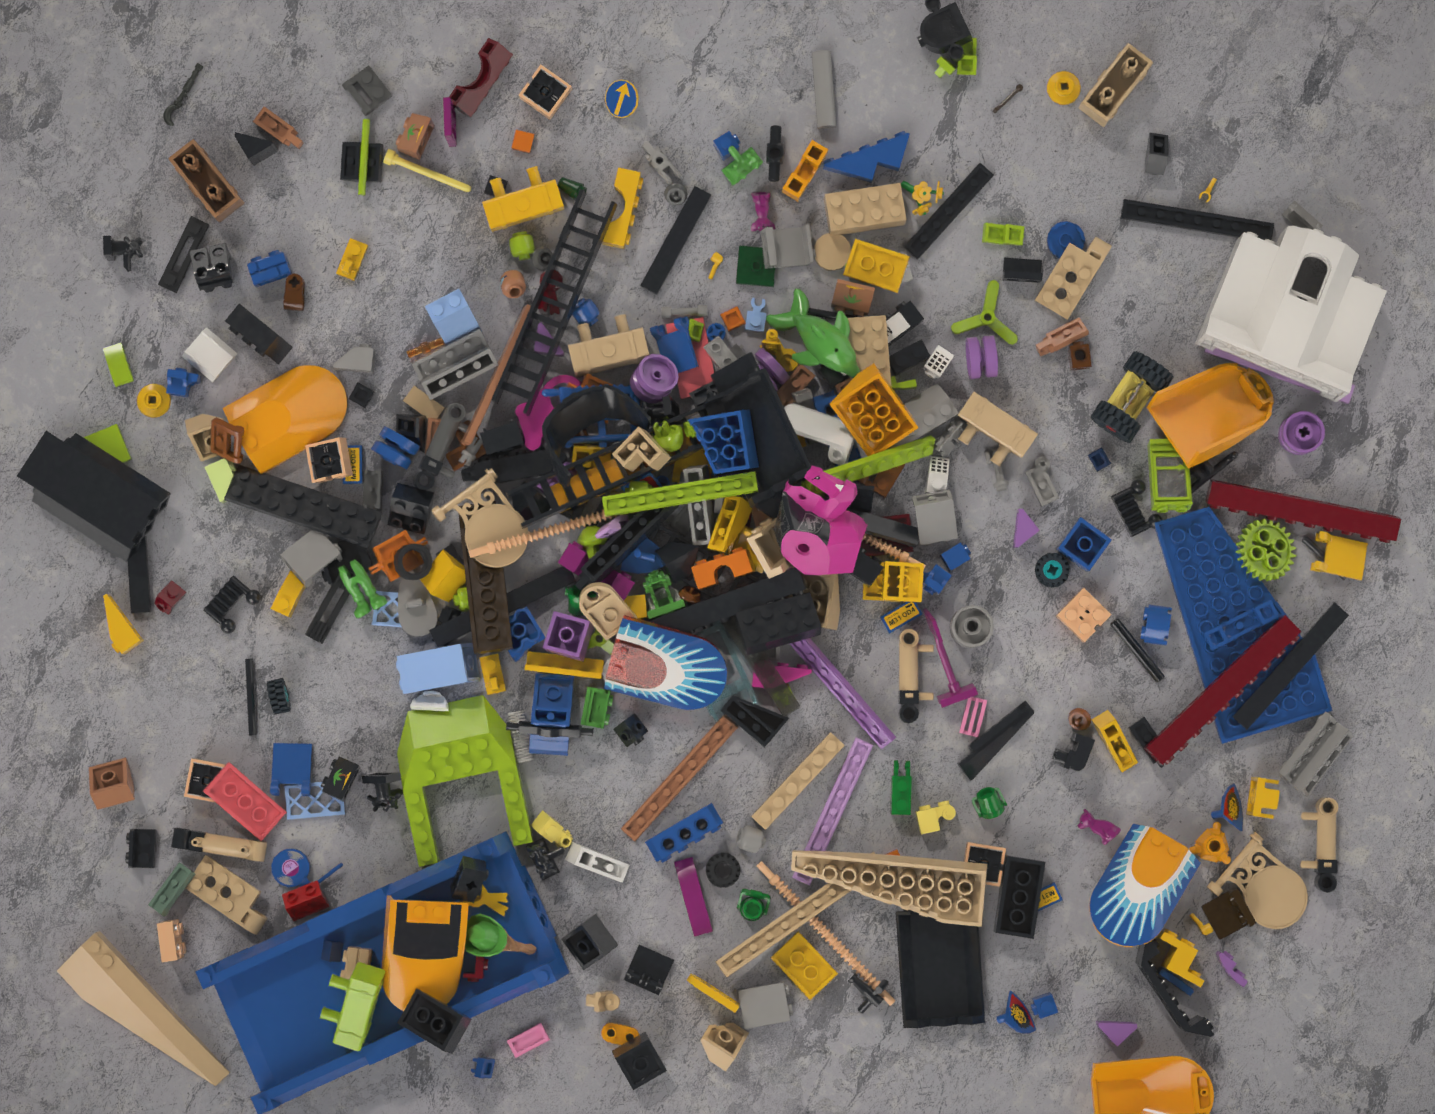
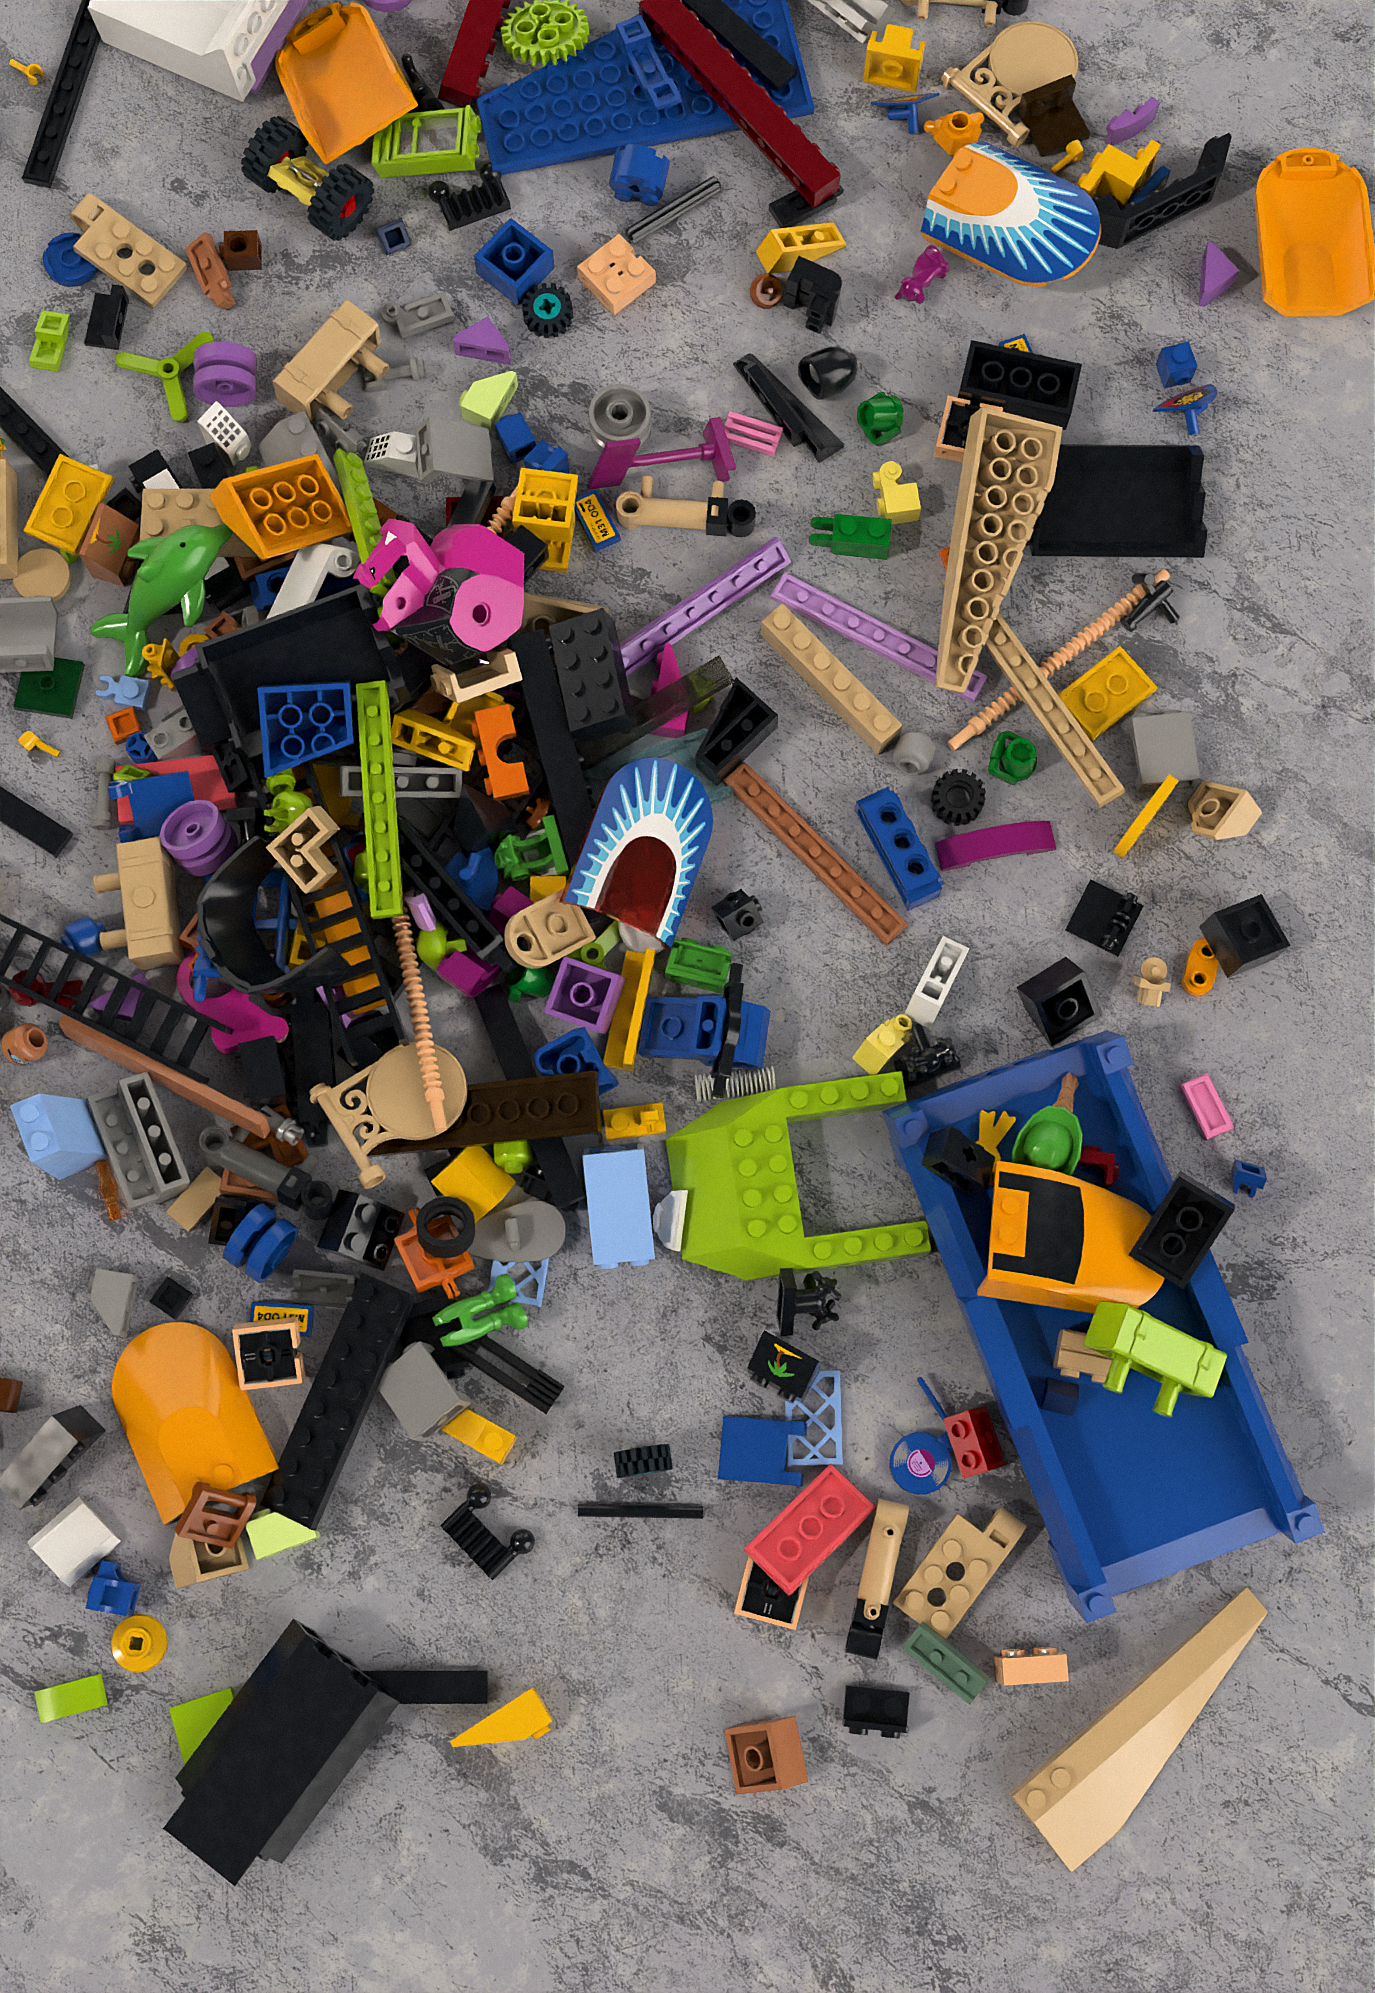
camera: 85 degrees left, 10 degrees down
(169, 597) = (466, 1636): dark red bracket -> none
(886, 300) = (126, 504): none -> black tile
(981, 535) = (488, 399): none -> yellowish green slope
(1019, 766) = (834, 369): none -> black piece

